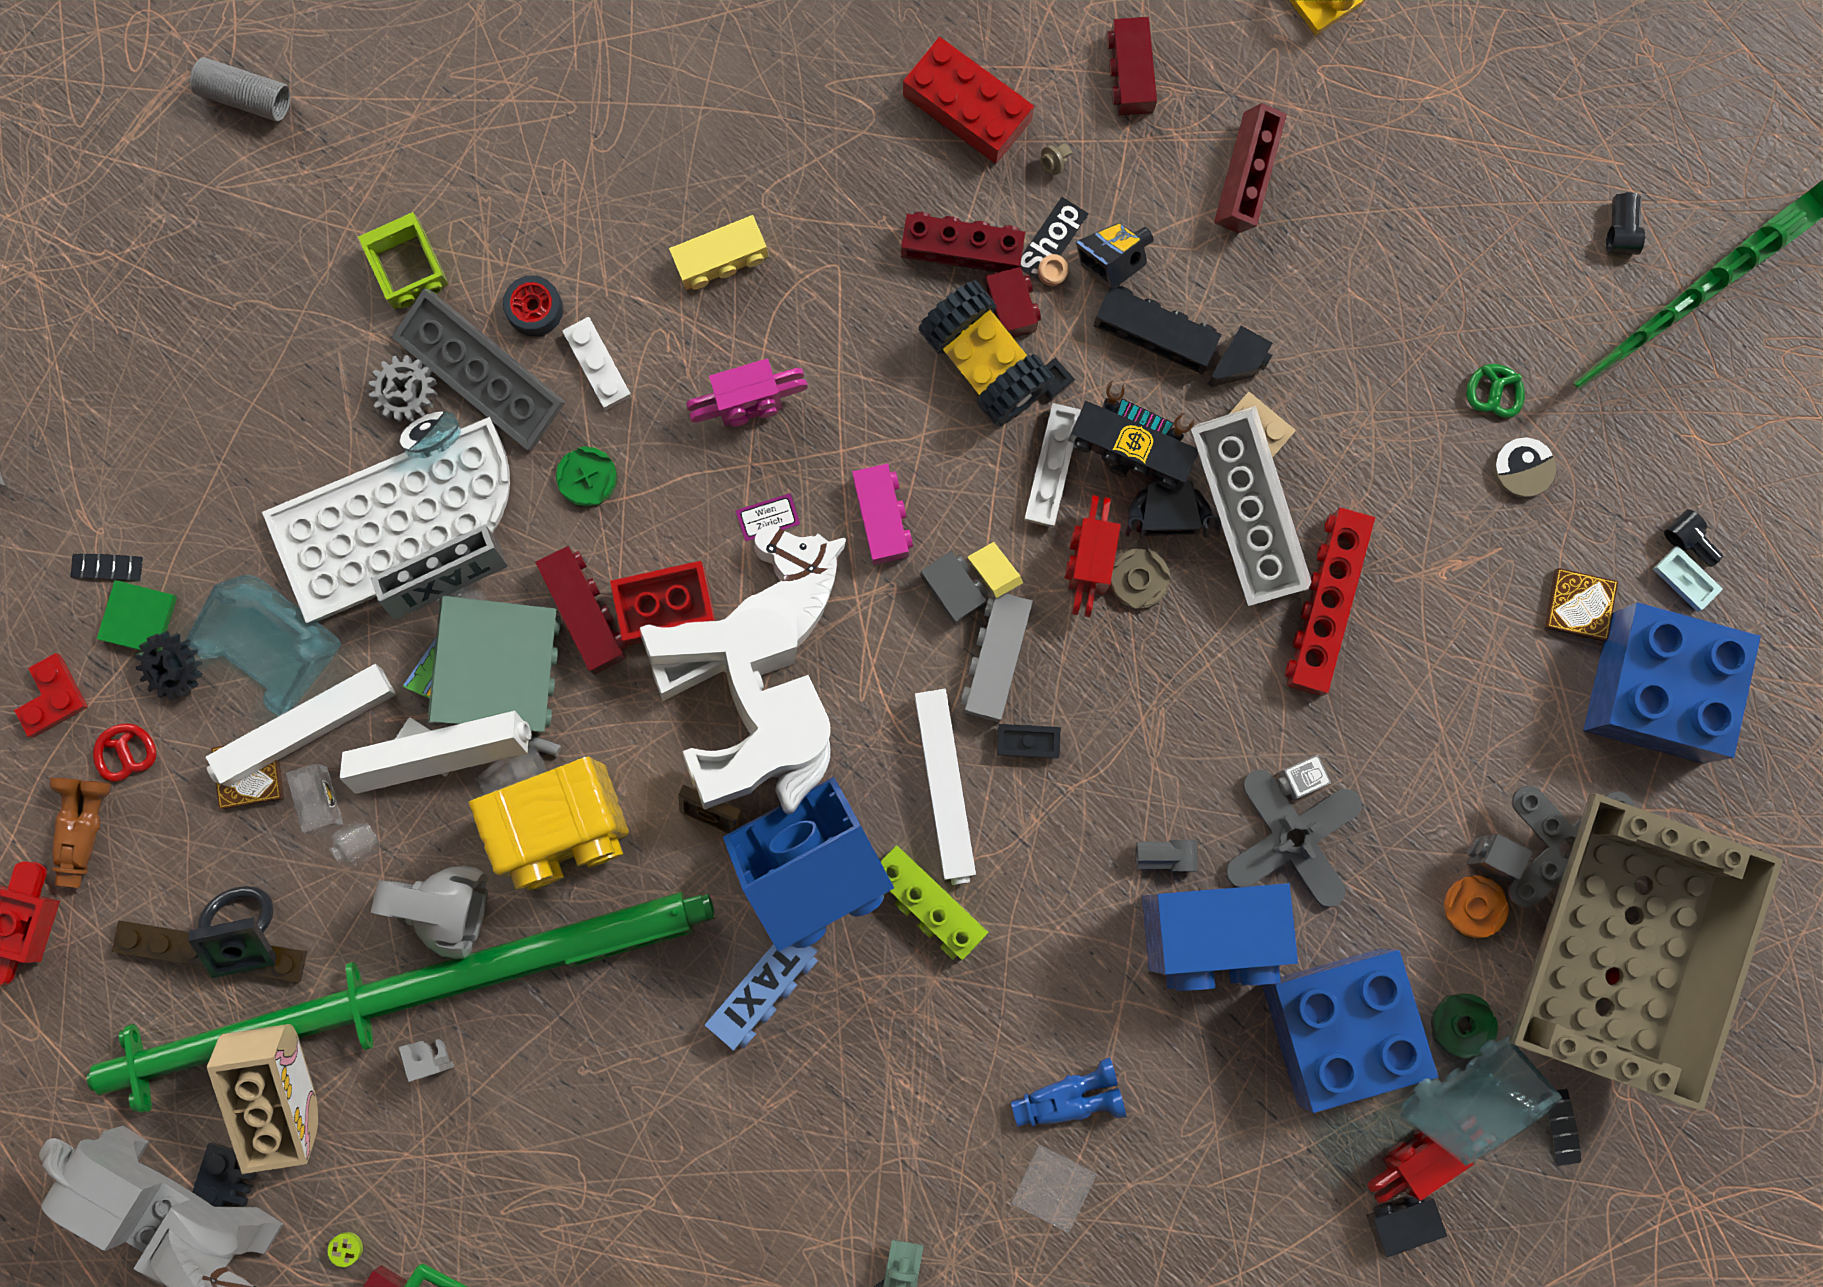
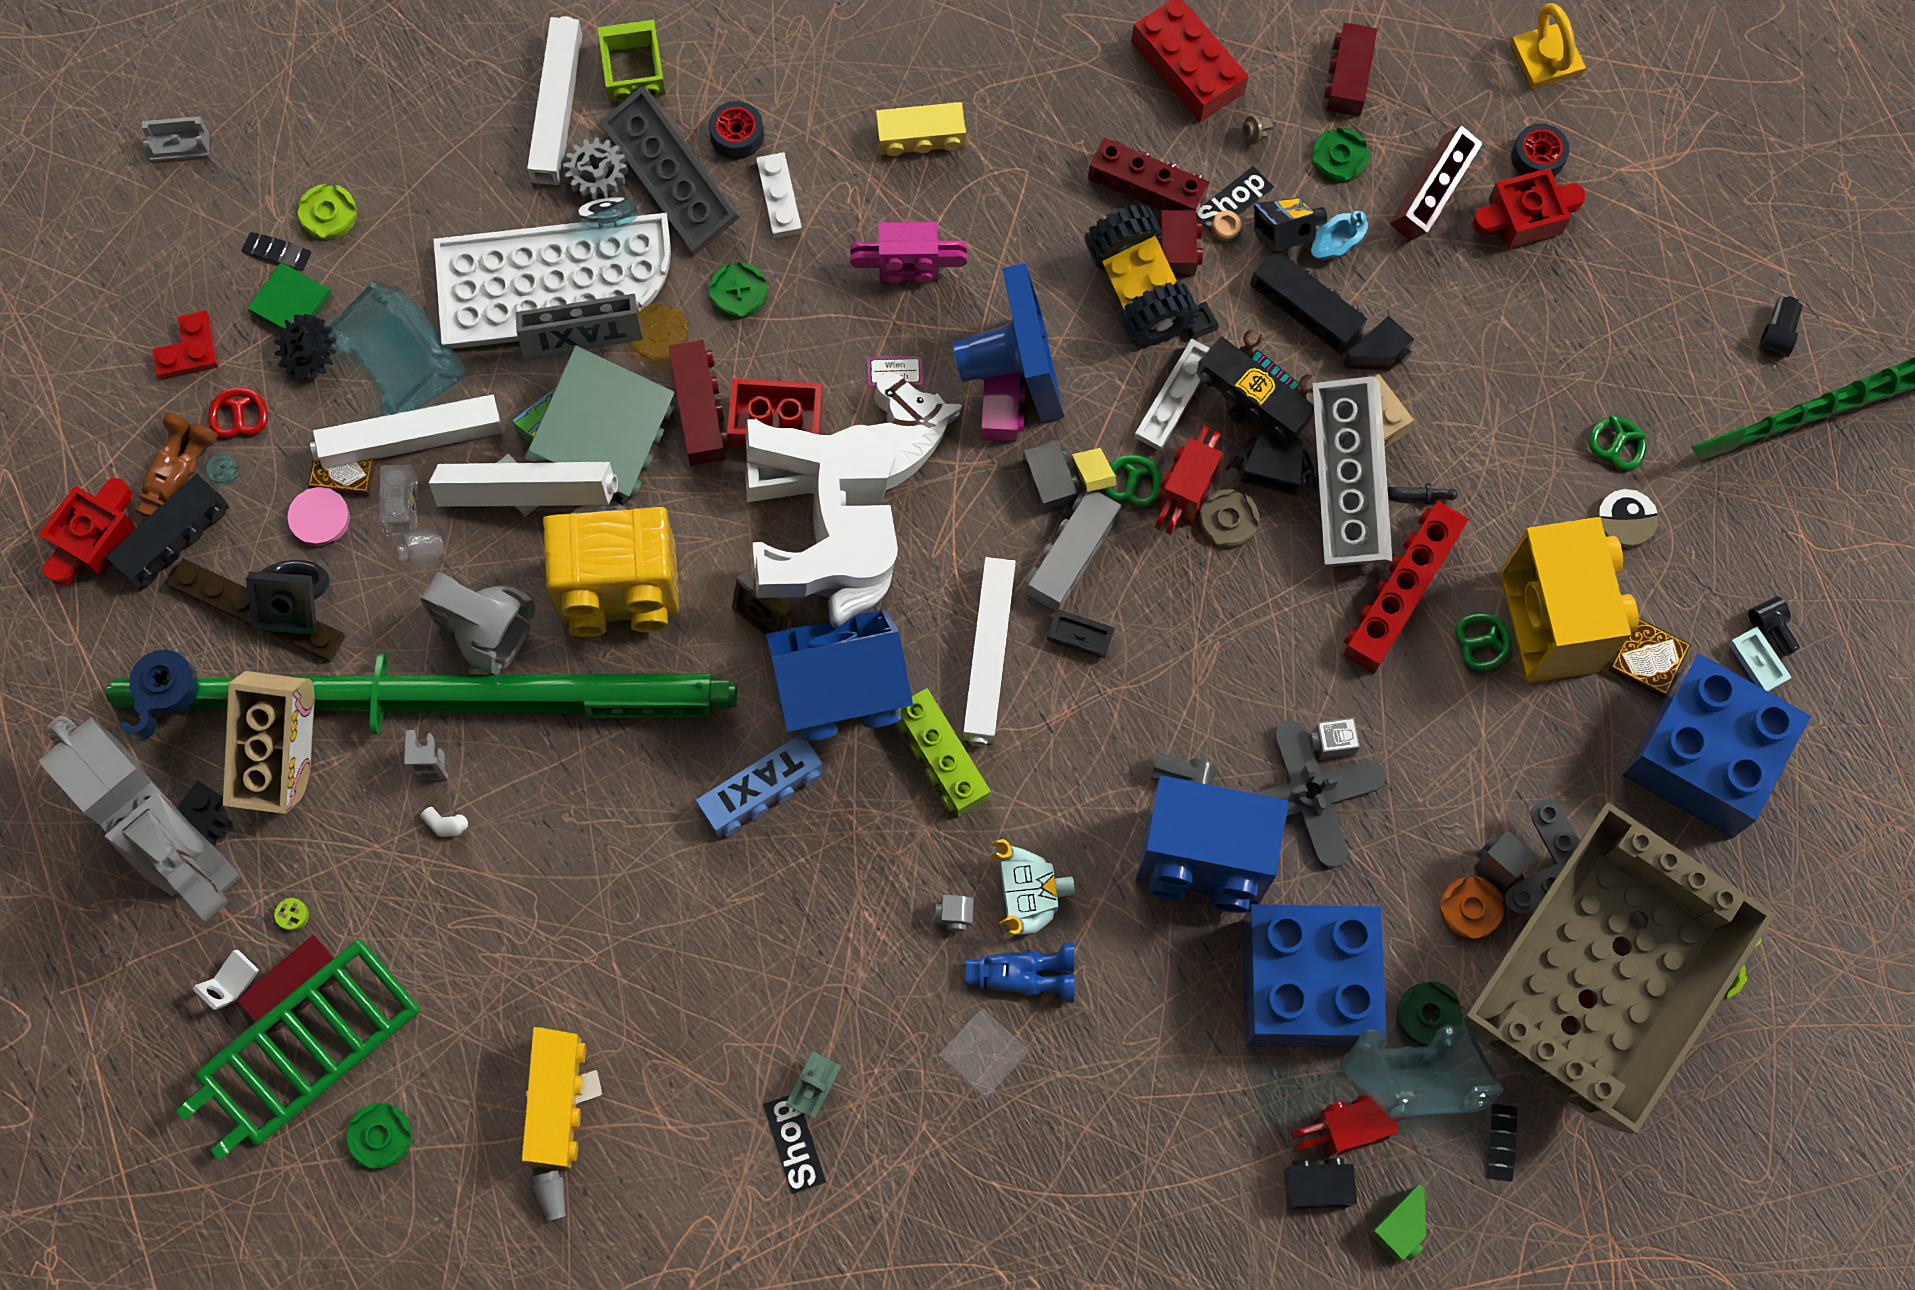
camera: 15 degrees right, 10 degrees down
(94, 899) = (168, 532): none -> black brick
(127, 814) = (222, 469): none -> clear light blue tile
(136, 1084) = (156, 701): none -> dark blue piece
(144, 511) = (327, 212): none -> lime tile
(240, 837) = (318, 516): none -> bright pink tile
(338, 326) = (555, 101): none -> white brick
(465, 1118) = (444, 826): none -> white arm
(522, 542) = (660, 329): none -> clear yellow tile
(884, 471) = (1015, 347): none -> blue piece
(987, 1059) = (954, 912): none -> light grey plate
(1035, 564) = (1133, 480): none -> green piece
(1052, 1018) = (1028, 889): none -> light aqua torso
(1145, 161) = (1340, 155): none -> green tile
(1169, 250) = (1339, 235): none -> medium azure arm
(1323, 498) = (1422, 493): none -> black piece
(1336, 90) = (1540, 139): none -> wheel
(1348, 169) = (1522, 197): none -> red brick
(1426, 614) = (1489, 639): none -> green piece
(1494, 1239) = (1403, 1226): none -> bright green slope
(1497, 581) = (1567, 599): none -> yellow brick

